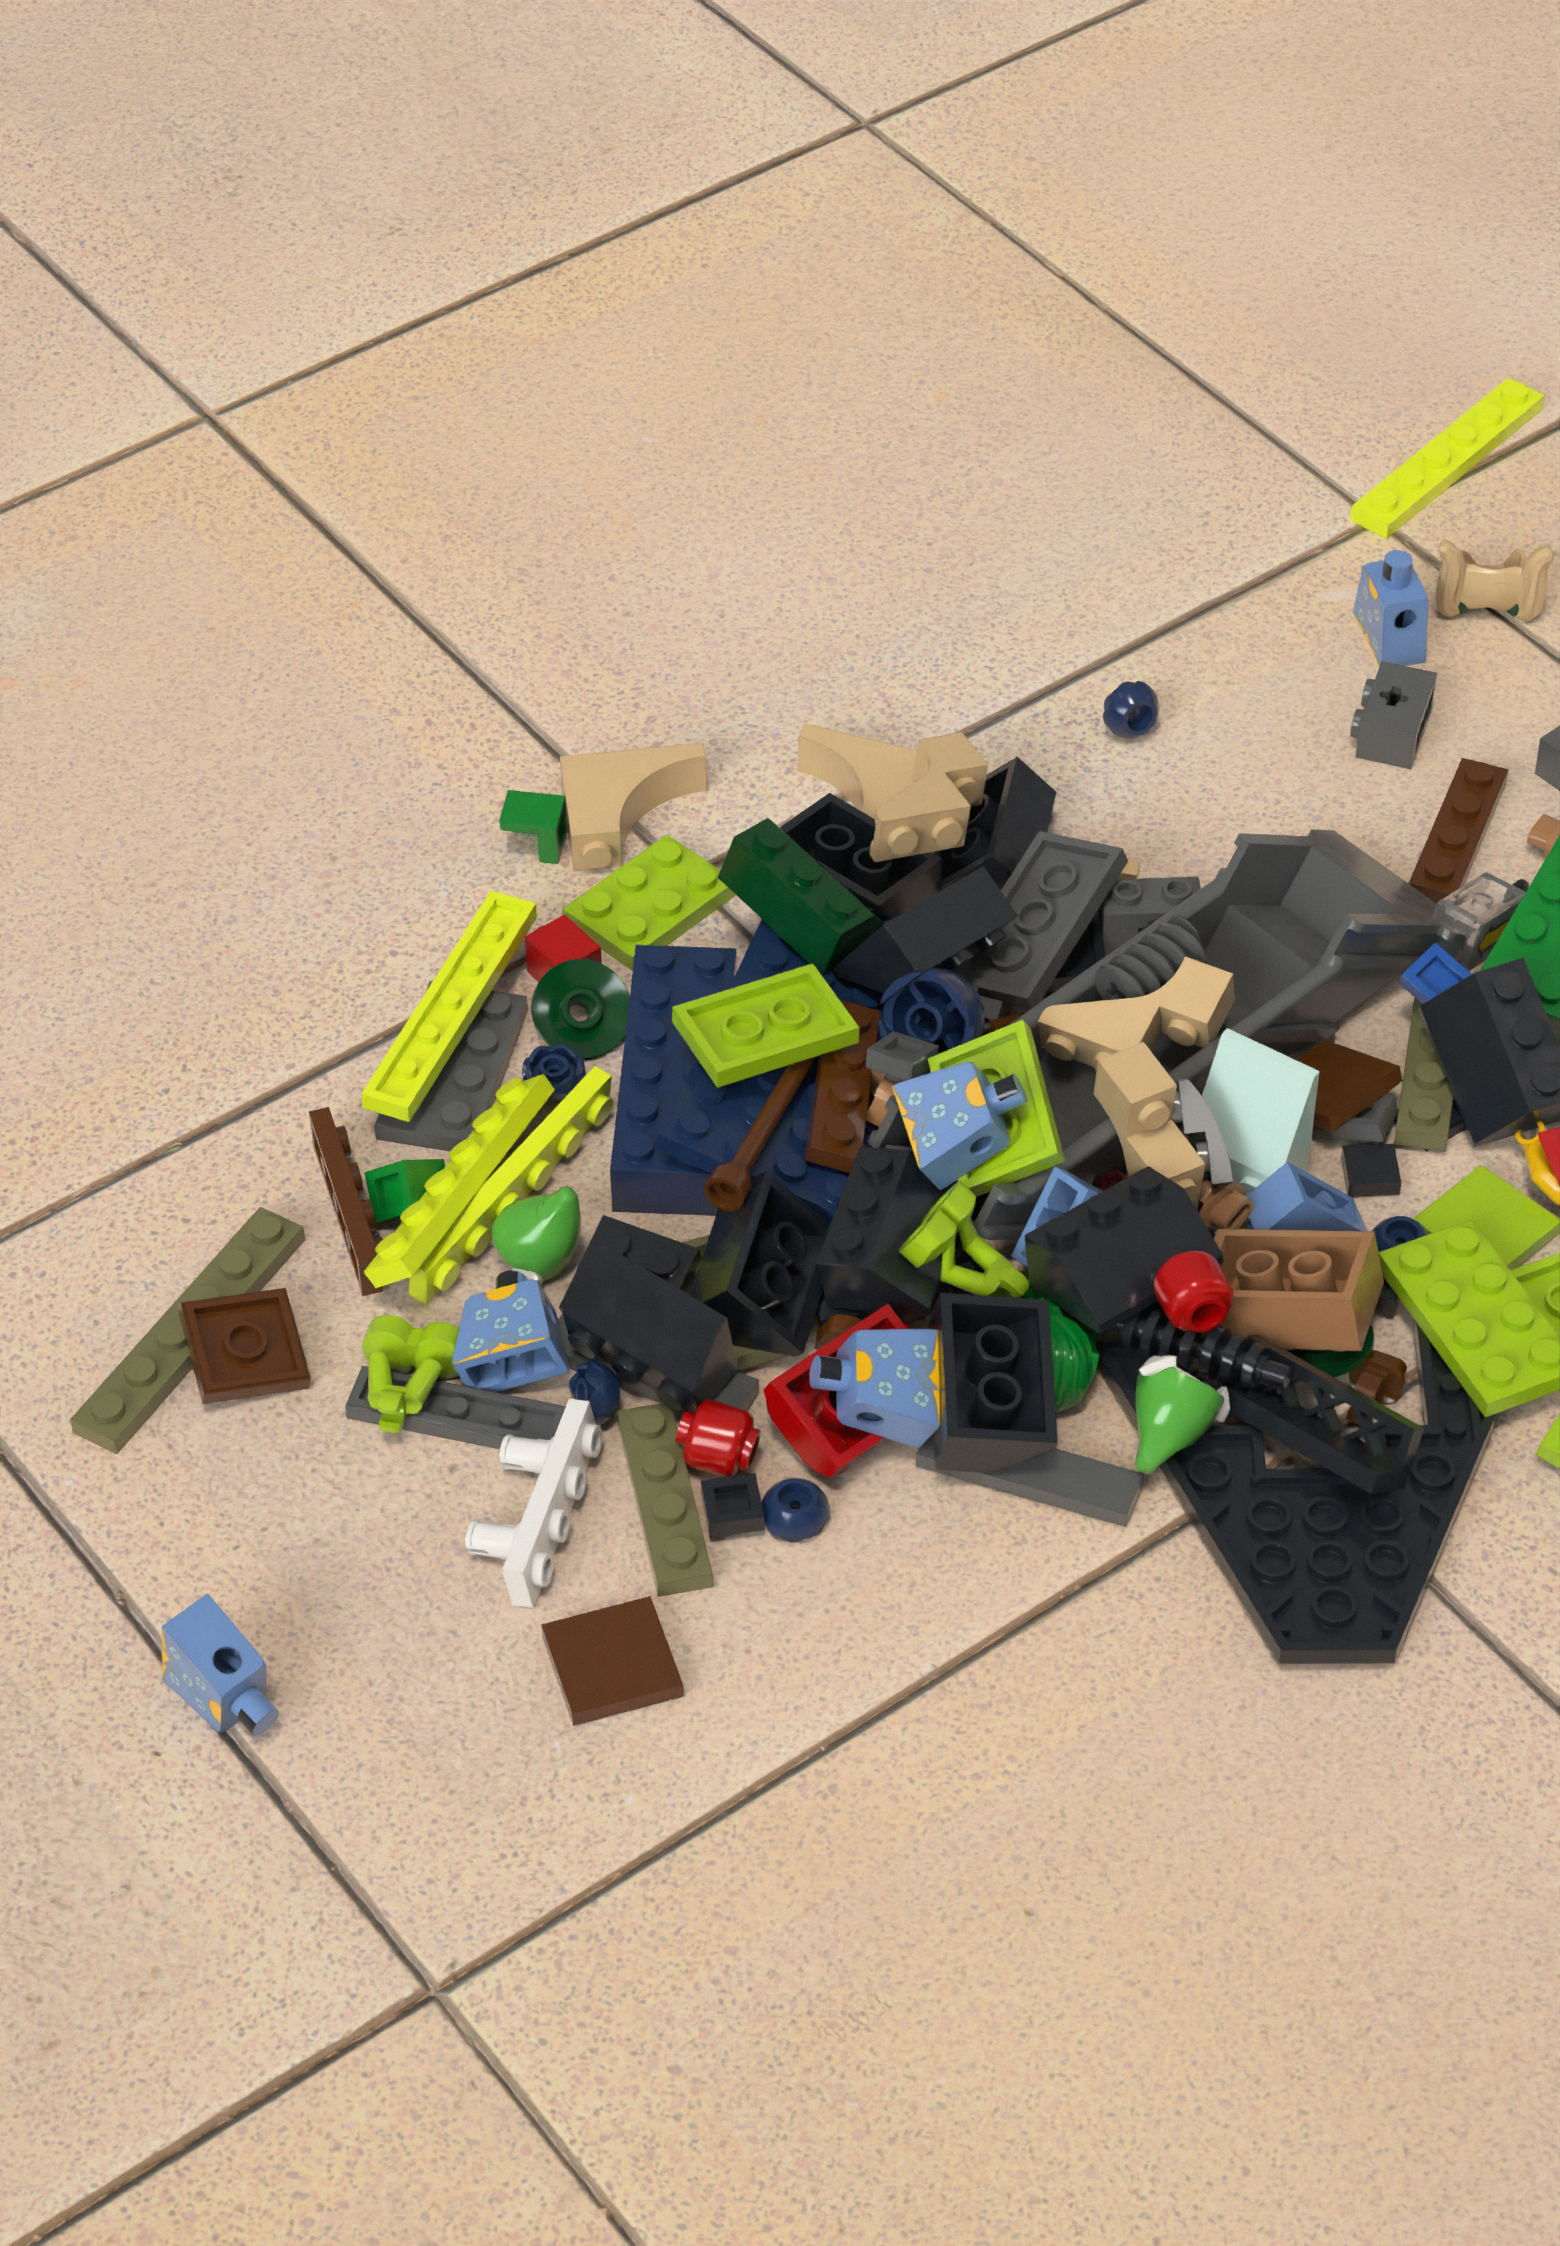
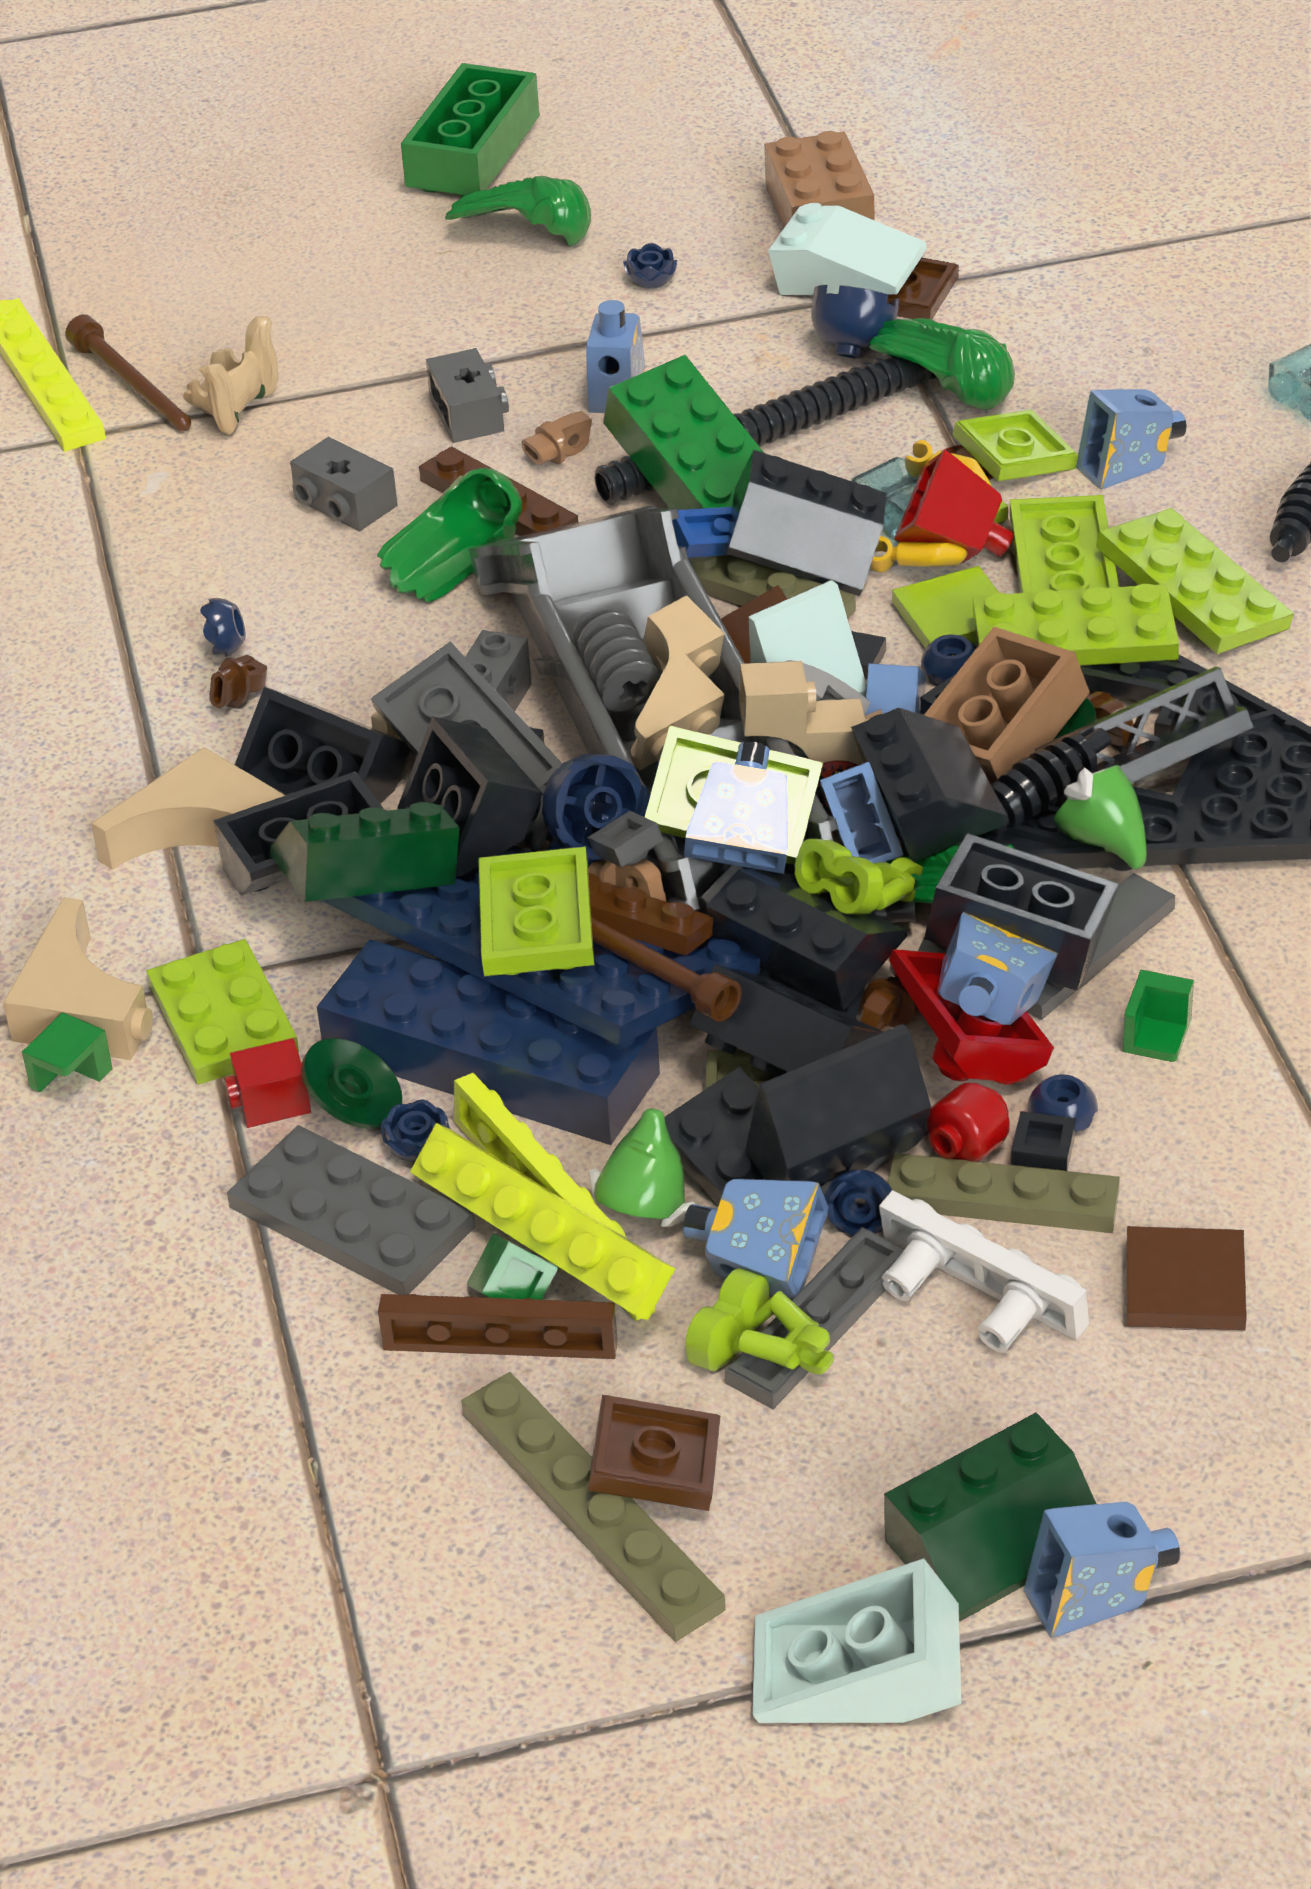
camera: 65 degrees left, 5 degrees down
(80, 1549) = (860, 1652): none -> light aqua slope
(267, 1583) = (984, 1511): none -> dark green slope
(449, 1006) = (300, 1168): neon yellow plate -> none
(937, 806) = (301, 750): tan arch -> none
(939, 1544) = (1158, 1015): none -> green panel
(1073, 748) = (236, 680): none -> reddish brown piece
(1193, 1291) = (1010, 741): red head -> none
(1376, 815) = (434, 548): none -> green hair
(1387, 594) = (225, 442): medium blue torso -> none
(1480, 913) = (633, 486): clear panel -> none
(1516, 463) = (88, 337): none -> reddish brown piece

